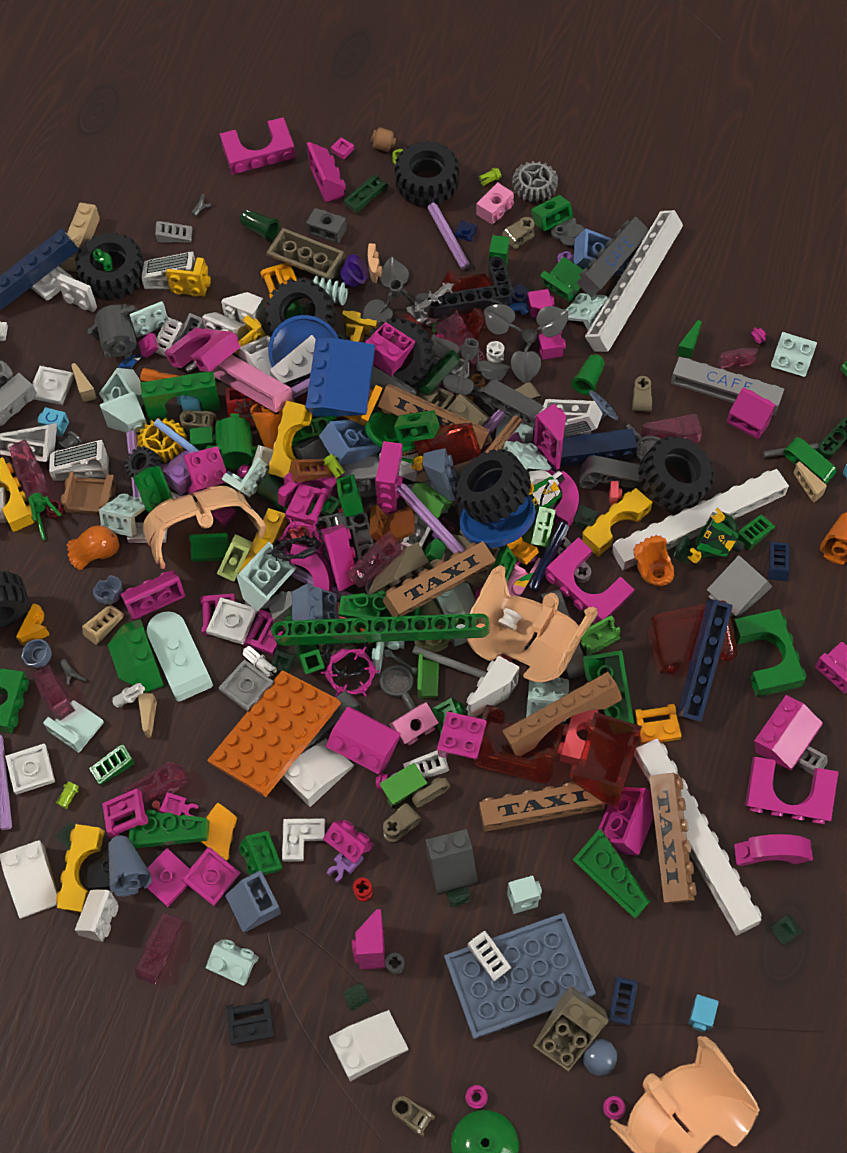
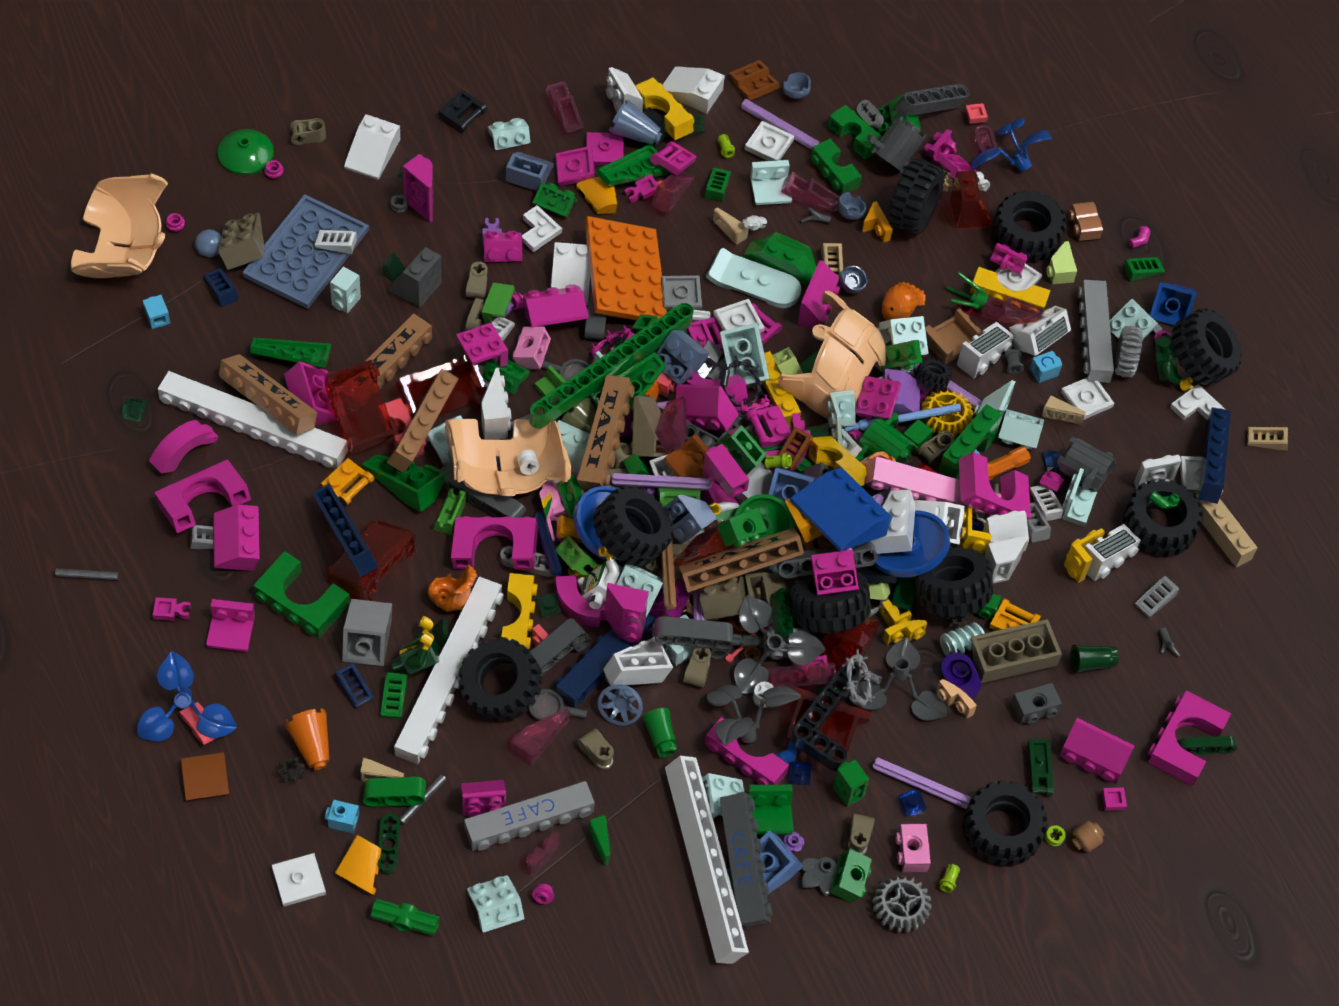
camera: 130 degrees right, 5 degrees down
(251, 135) = (1209, 745): none -> dark green beam
(367, 894) = (466, 222): red bush -> none

